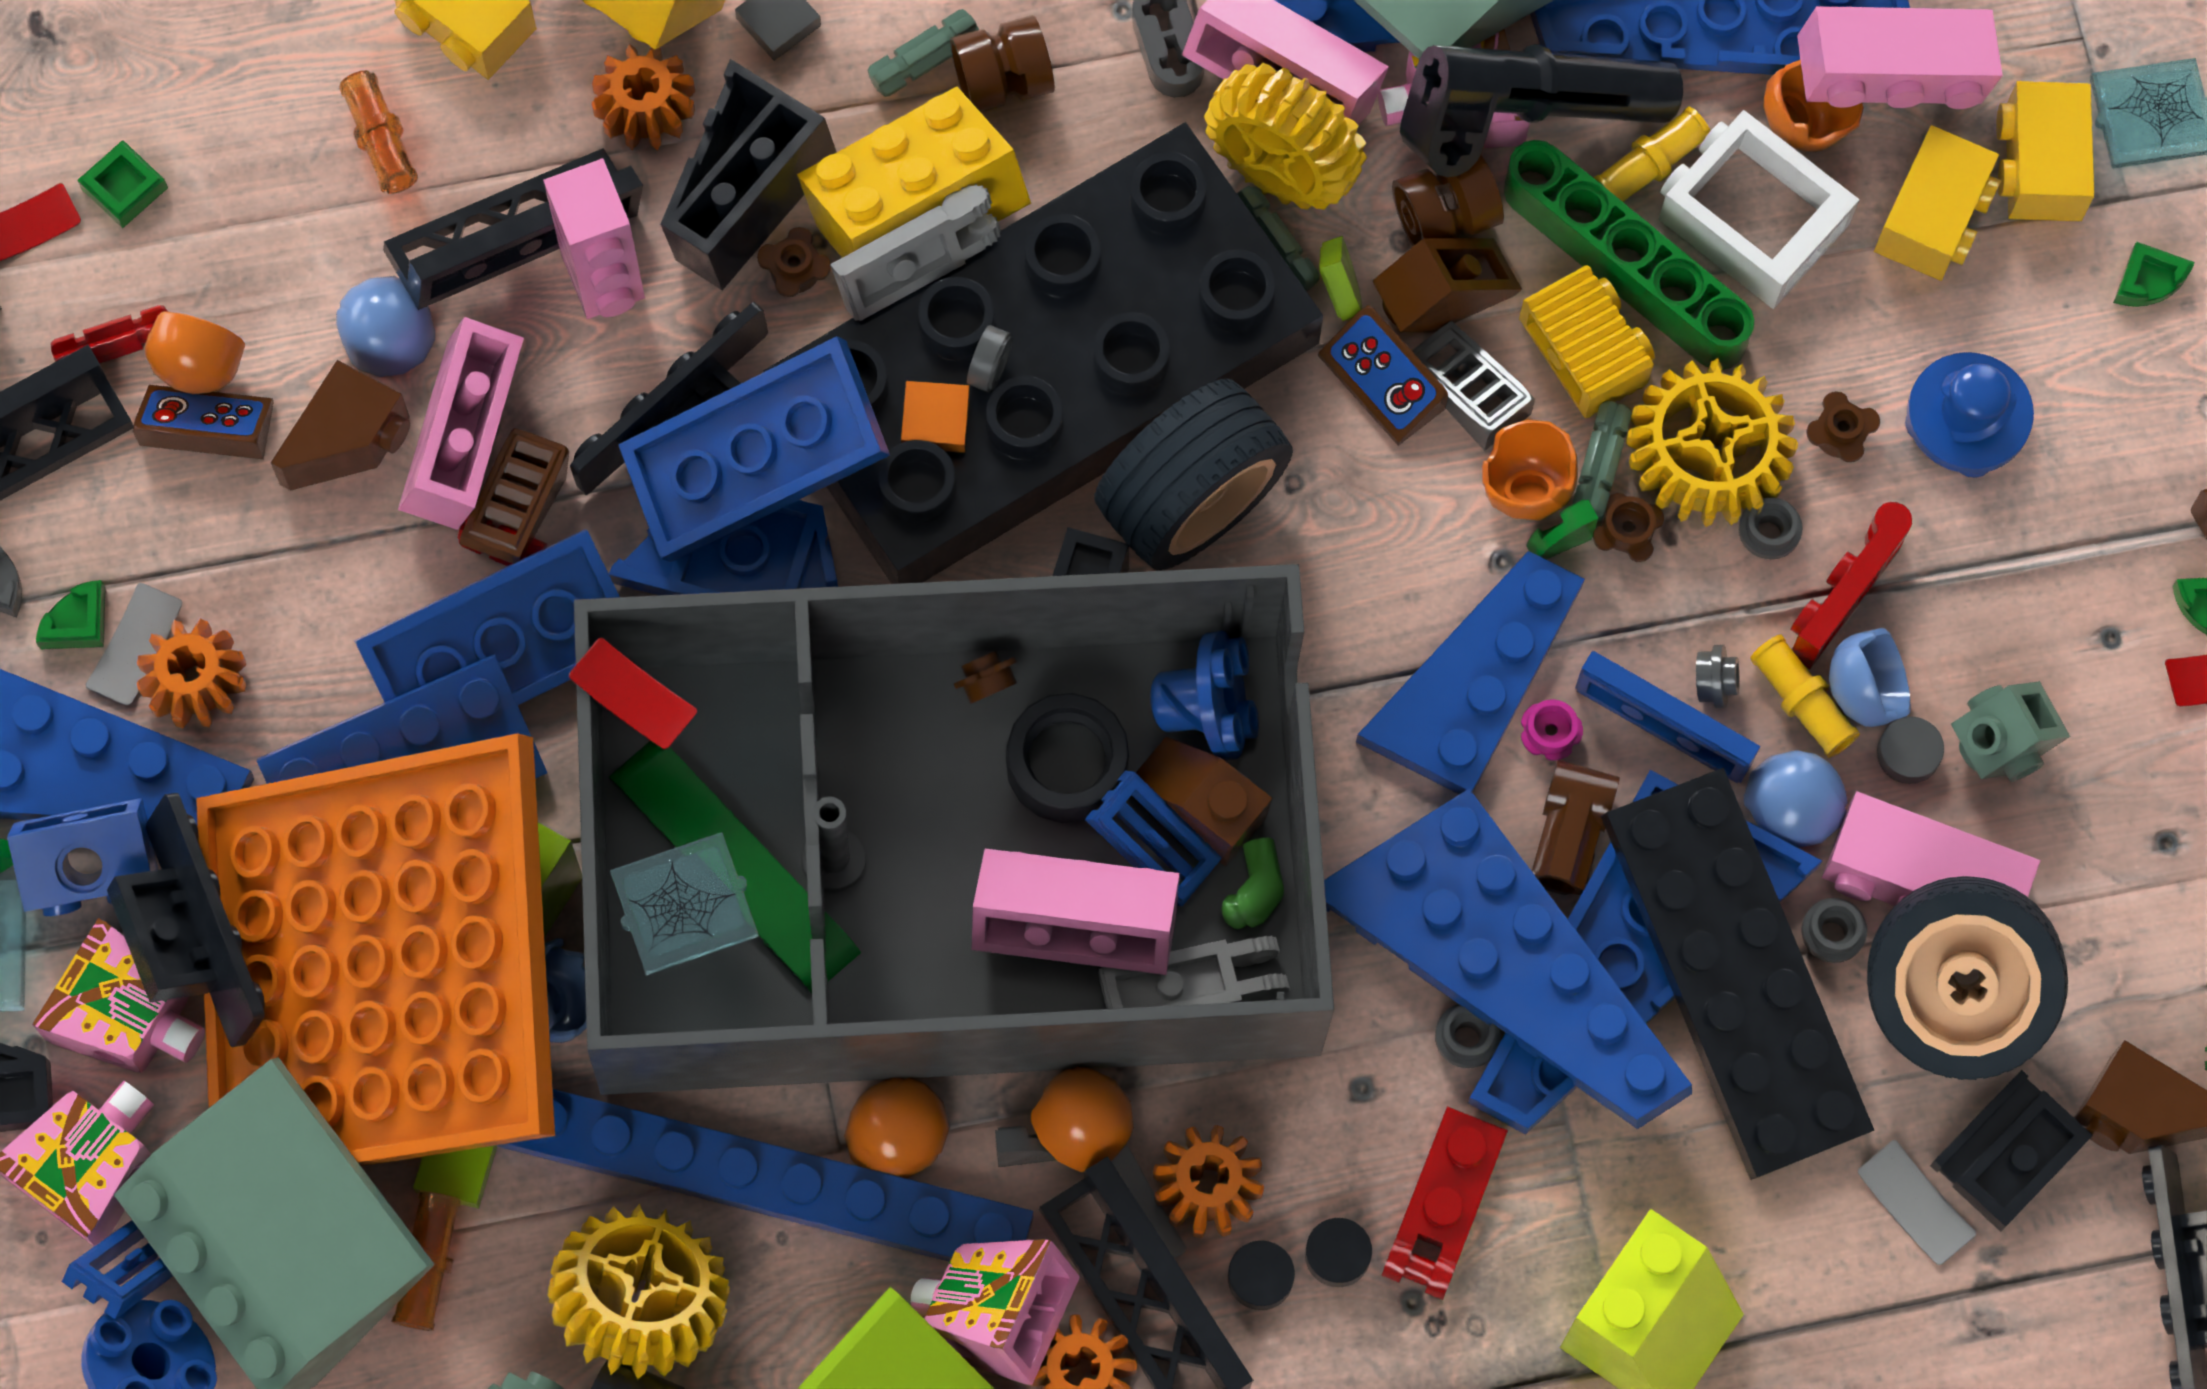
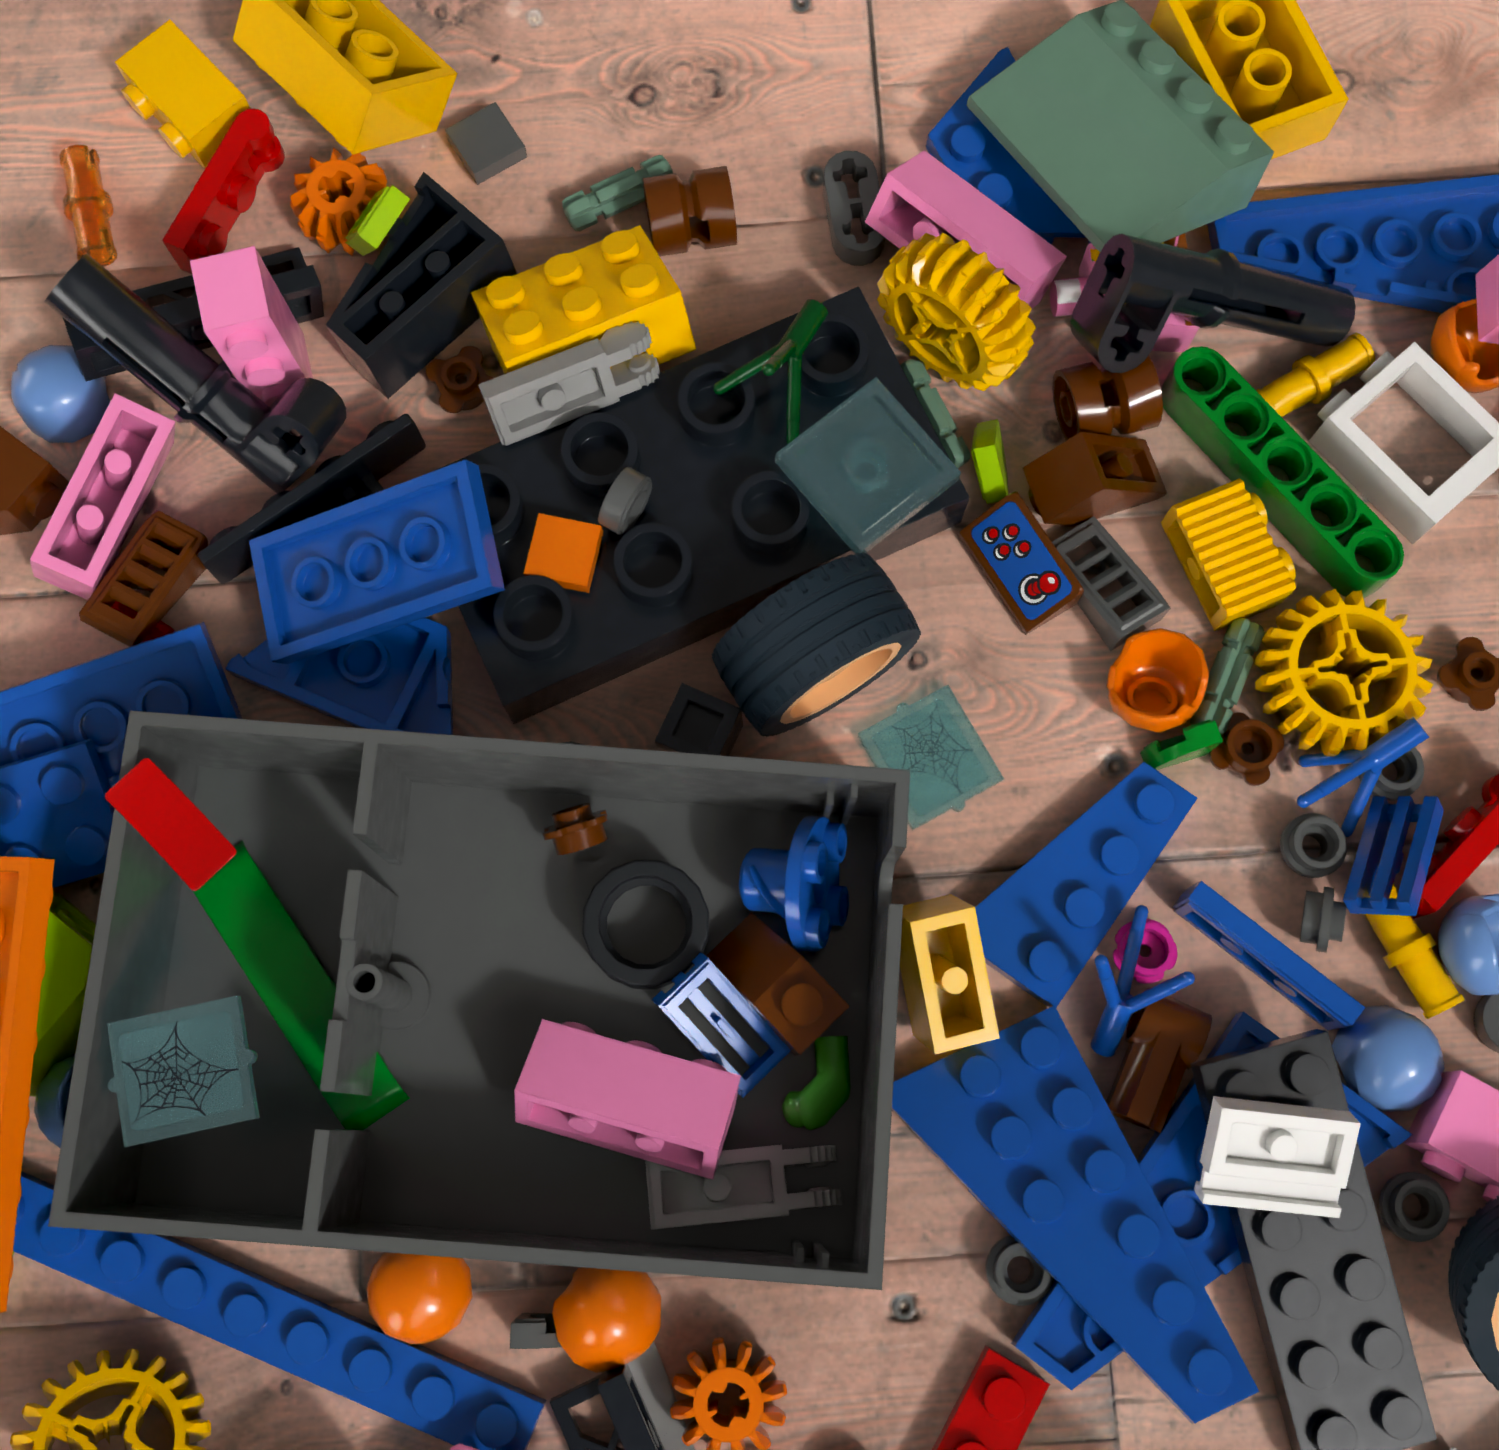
camera: 10 degrees right, 5 degrees up
(520, 99) = (224, 189): none -> red plate
(552, 303) = (268, 441): none -> black piece
(692, 114) = (376, 220): none -> lime tile
(1128, 194) = (788, 350): none -> dark green plant
(1220, 297) = (867, 467): none -> clear light blue plate
(1334, 568) = (939, 749): none -> clear light blue piece
(1359, 767) = (946, 975): none -> yellow brick
(1529, 773) = (1119, 1000): none -> blue plant
(1683, 877) = (1276, 1157): none -> white plate
(1705, 593) = (1331, 841): none -> dark grey plate
(1726, 524) = (1369, 760): none -> blue plant
(1766, 606) = (1366, 862): none -> blue tile

